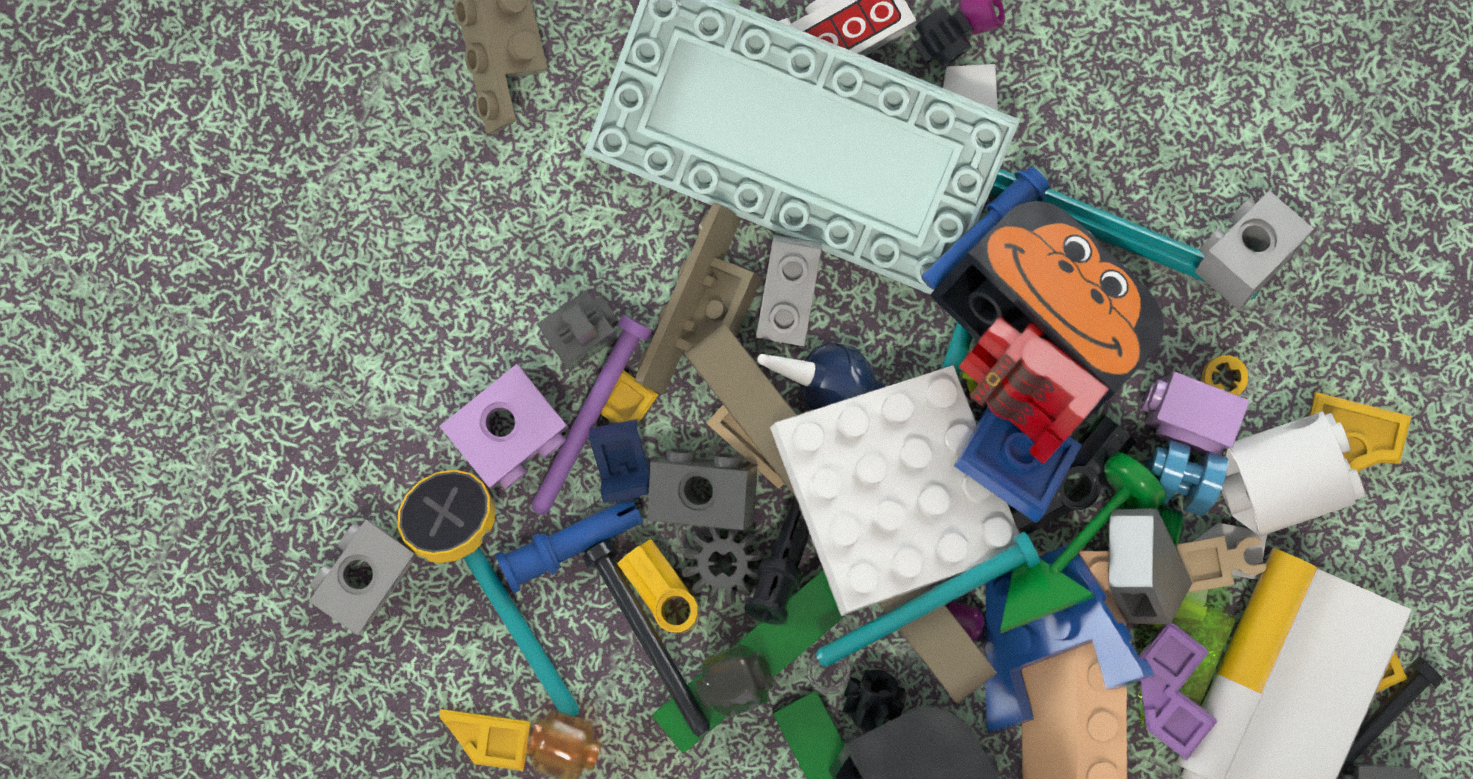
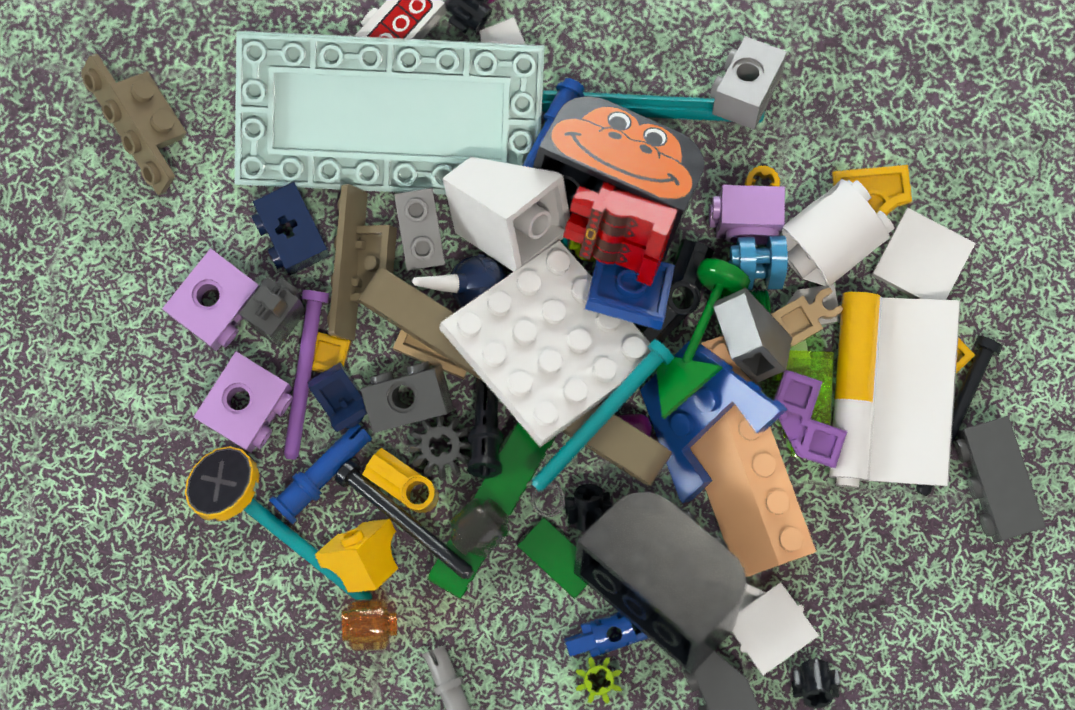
camera: 20 degrees left, 5 degrees down
(389, 563) = (179, 574): light grey brick -> none
(489, 738) = (312, 640): yellow tile -> none
(505, 319) = (218, 322): none -> lavender brick
(582, 661) = (361, 555): none -> yellow brick
(638, 204) = (286, 207): none -> dark blue brick
(903, 307) = (507, 208): none -> white slope
(1387, 538) = (923, 258): none -> white tile

